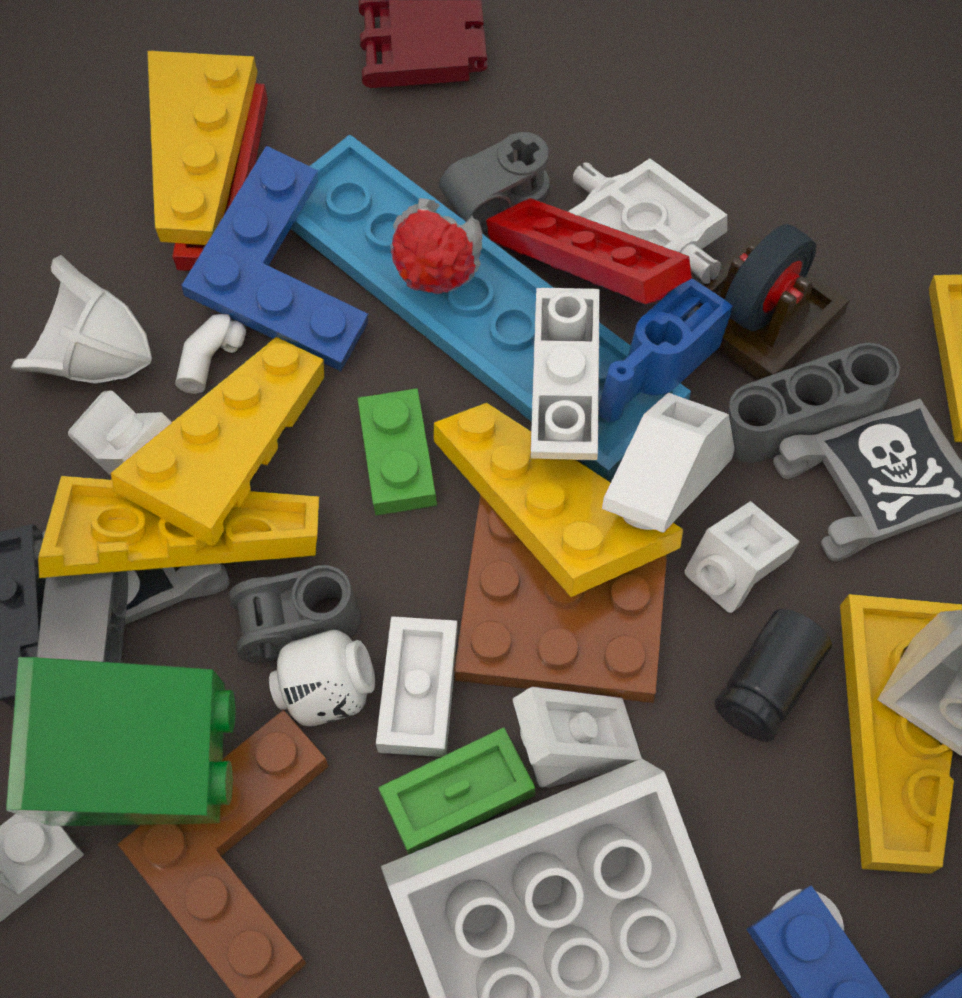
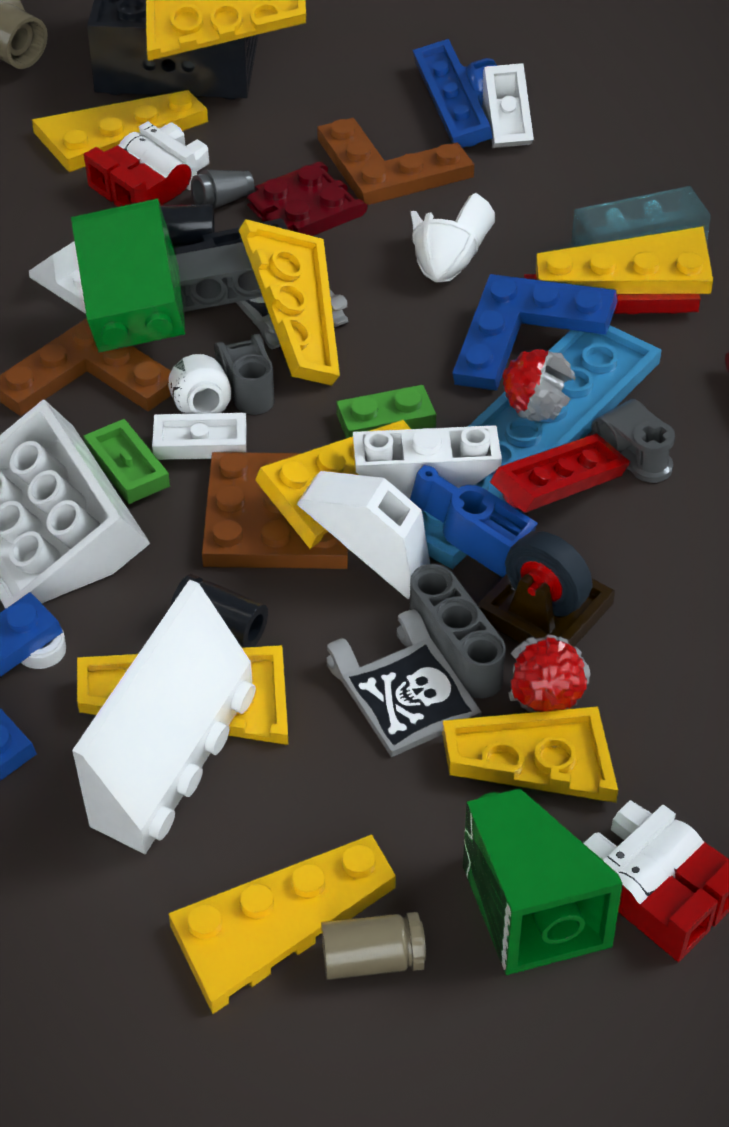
camera: 80 degrees right, 15 degrees down
(110, 125) = (640, 217): none -> clear light blue brick
(113, 431) = (373, 270): white bracket -> none
(202, 345) = (450, 306): white arm -> none
(212, 450) = (374, 314): yellow wing -> none
(574, 734) = (165, 505): white slope -> none
(656, 209) = (617, 524): white plate -> none
(738, 555) = (319, 594): white bracket -> none
(904, 310) = (548, 674): none -> red piece

